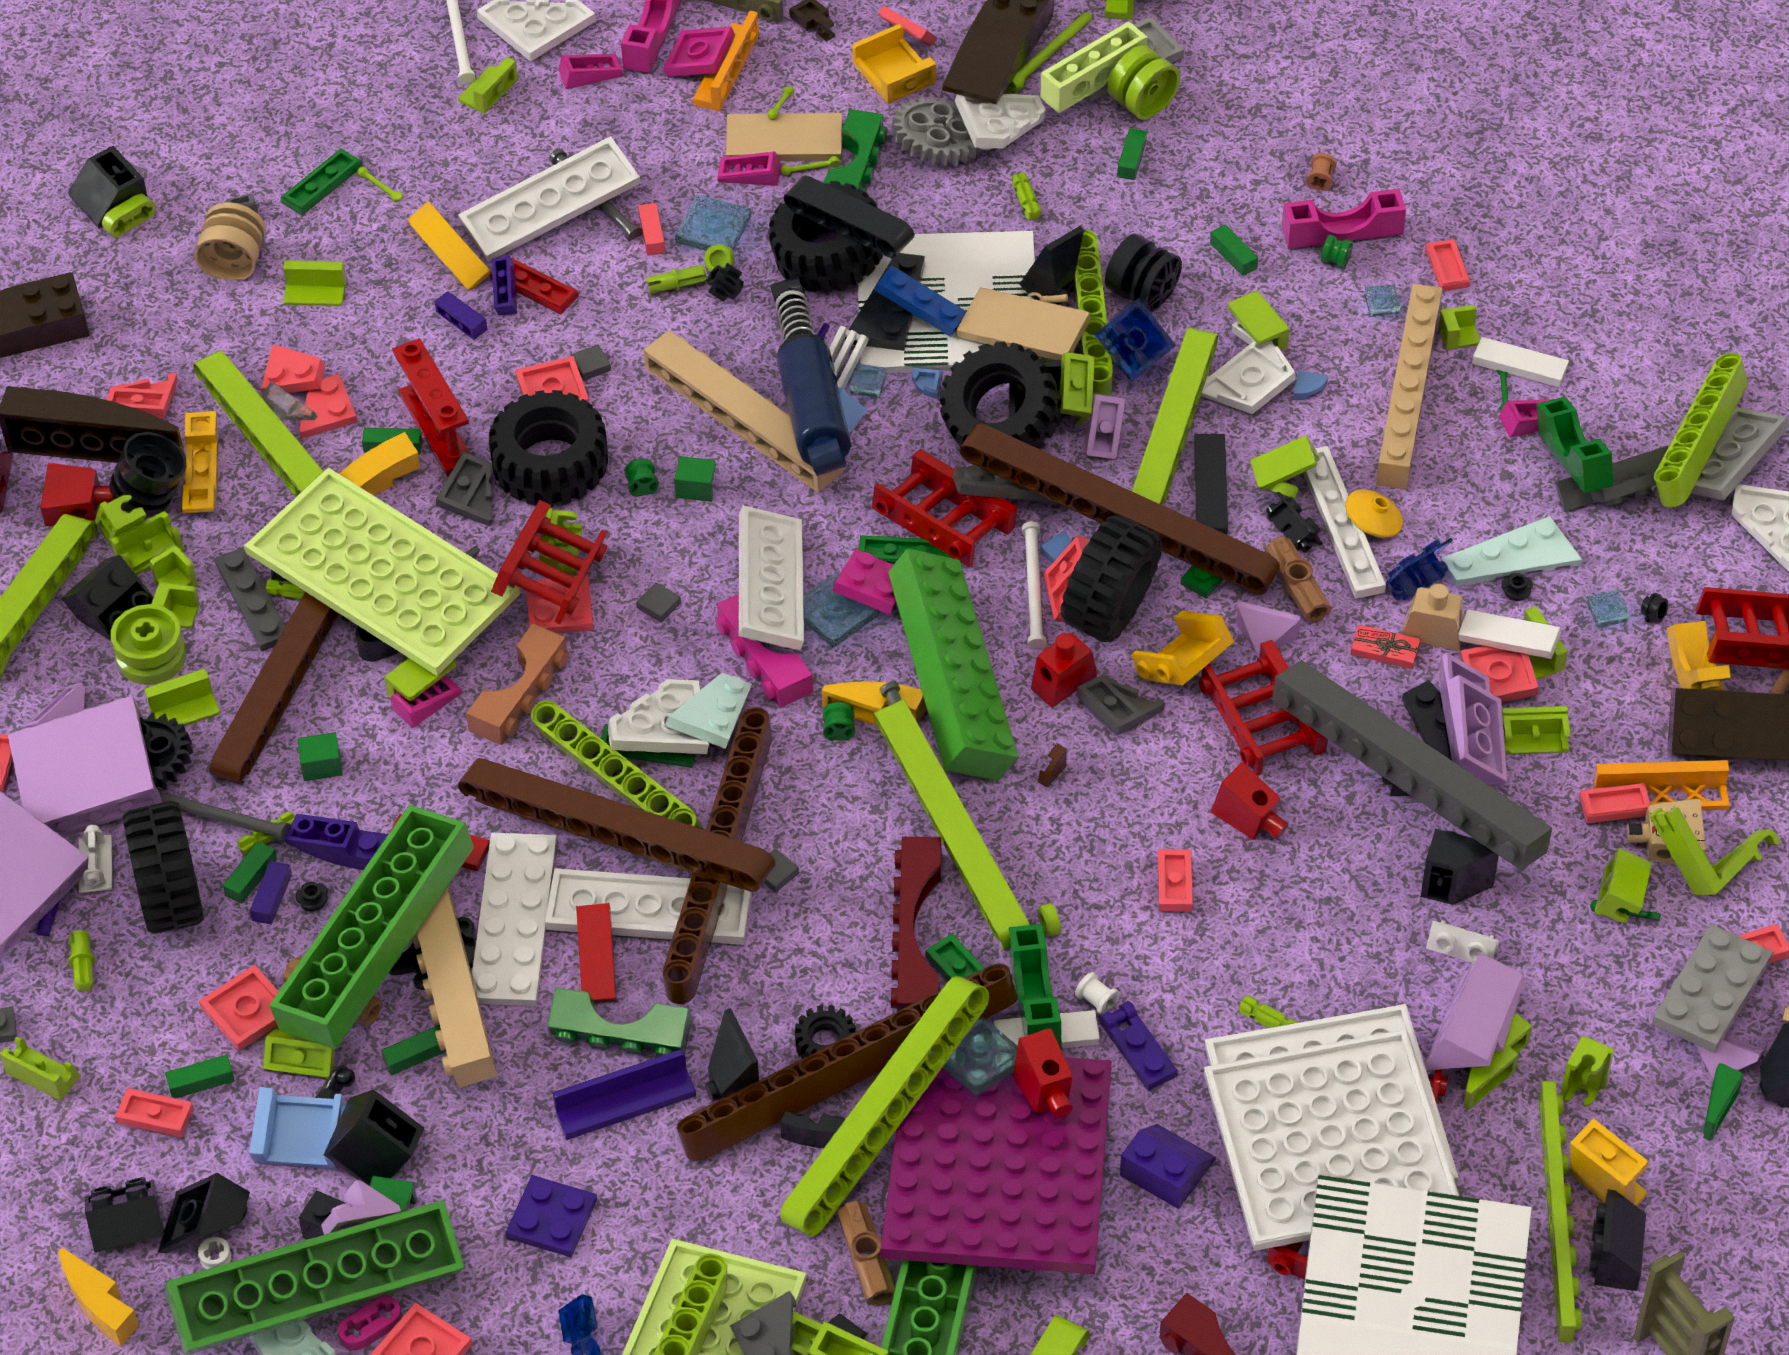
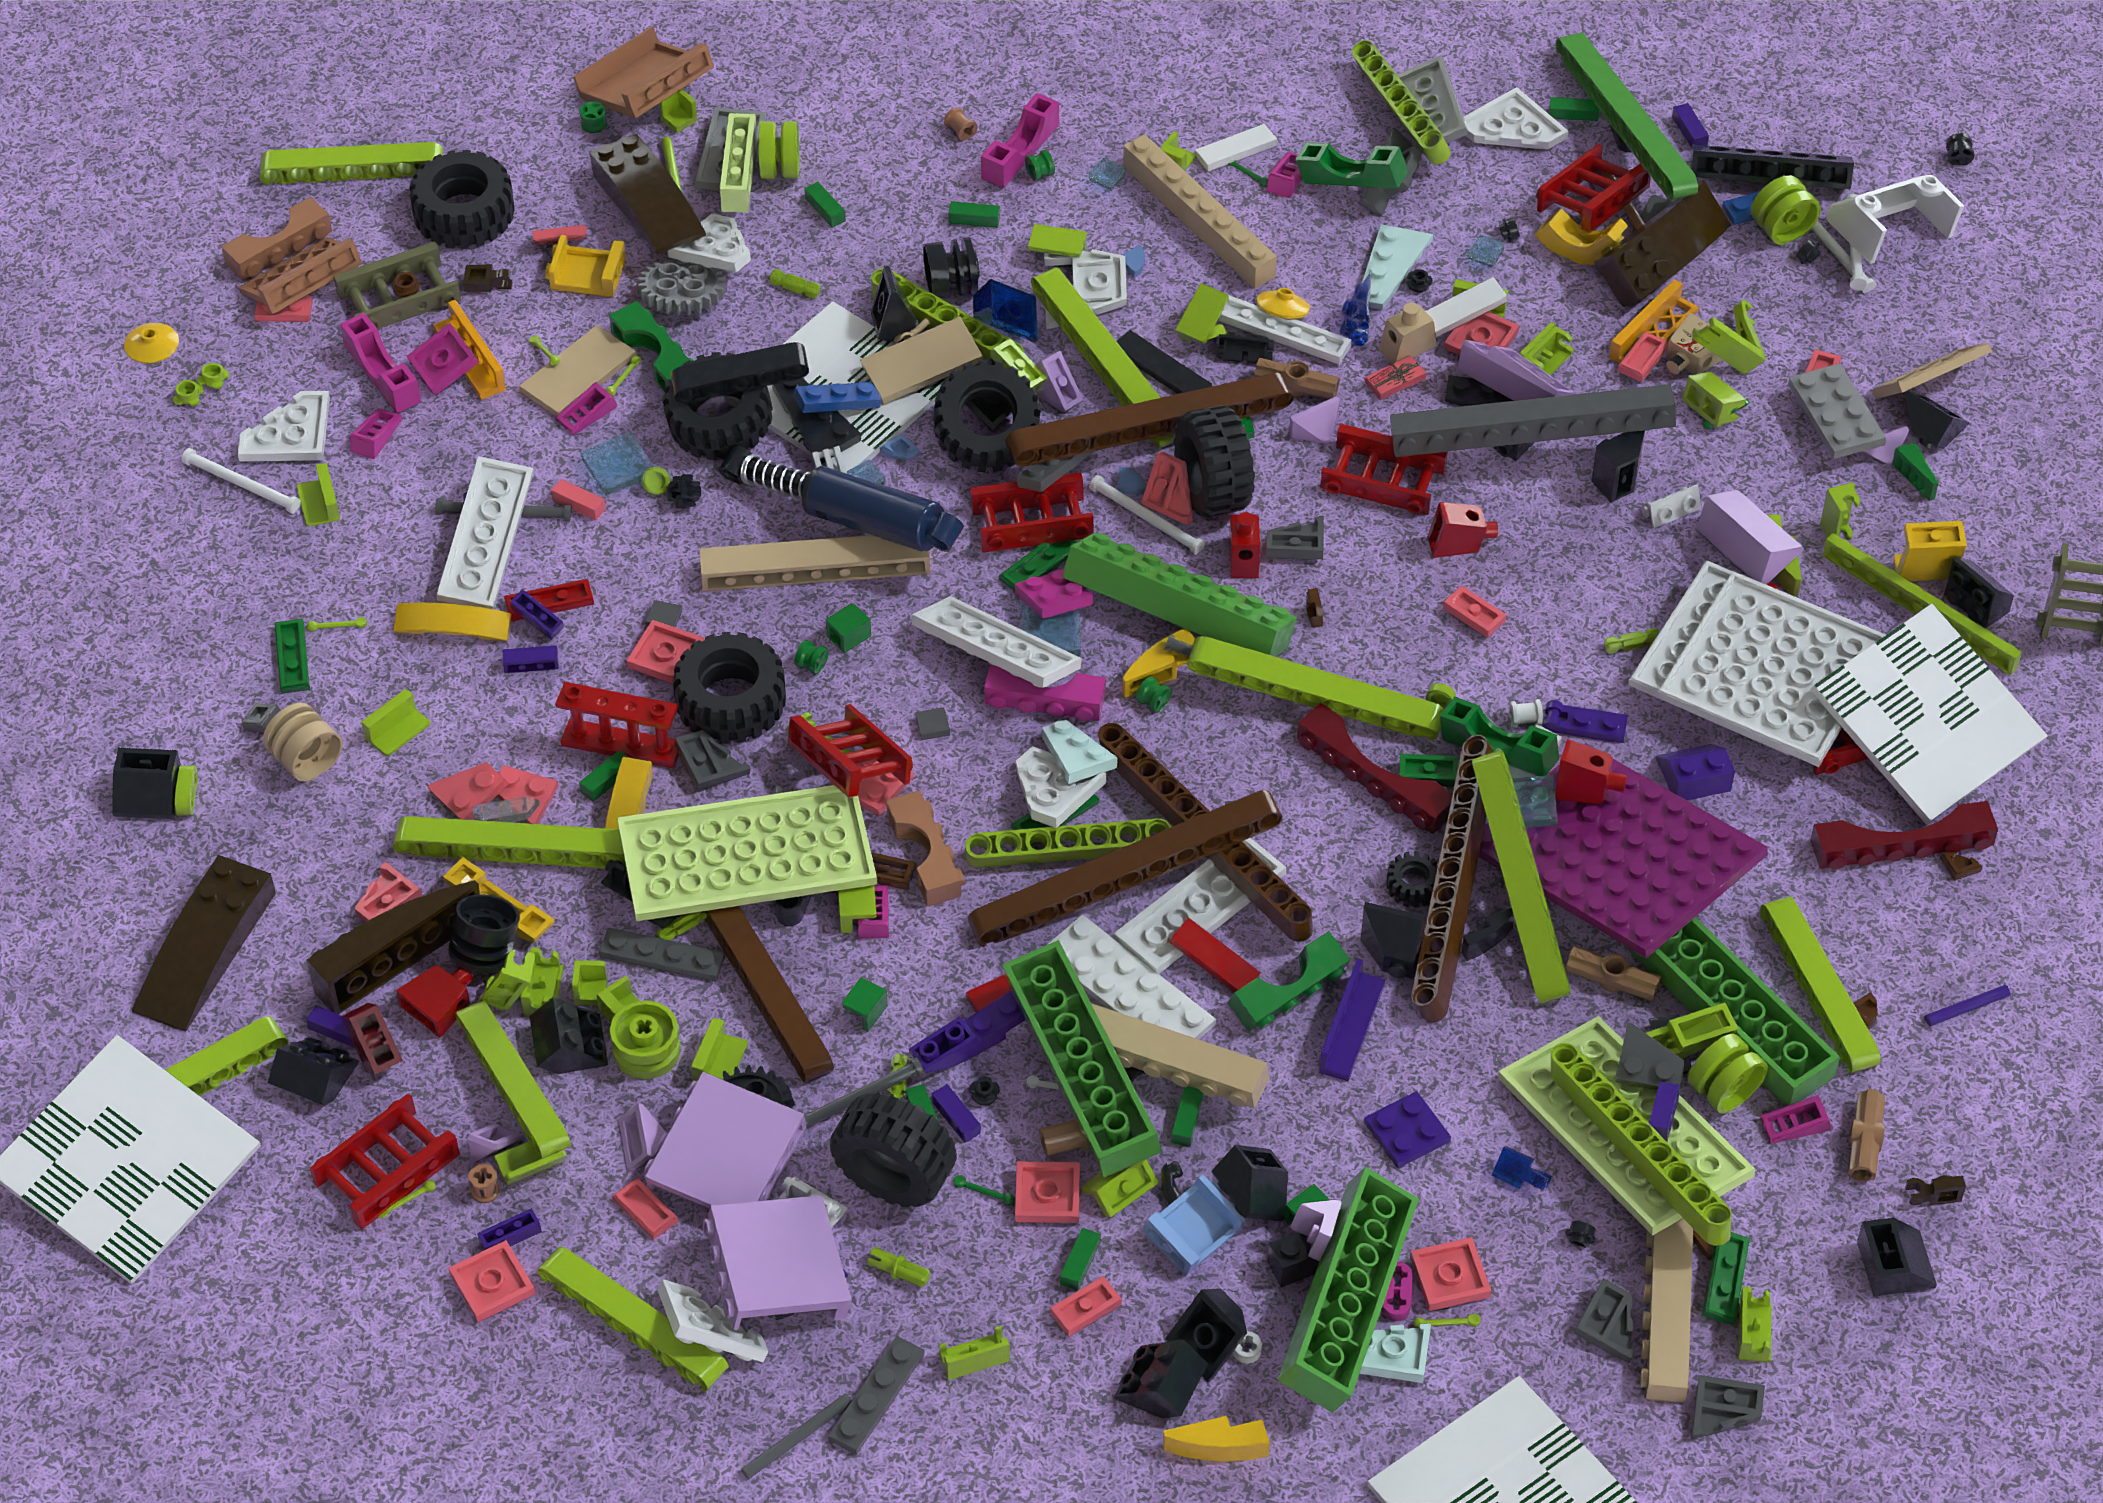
camera: 50 degrees left, 0 degrees up
(209, 945) = (960, 1182): none -> green hinge
(464, 655) = (893, 877): none -> reddish brown tile
(676, 279) = (644, 517): lime axle -> none
(1200, 642) = (1299, 471): yellow panel -> none
(1447, 265) = (1112, 123): coral tile -> none

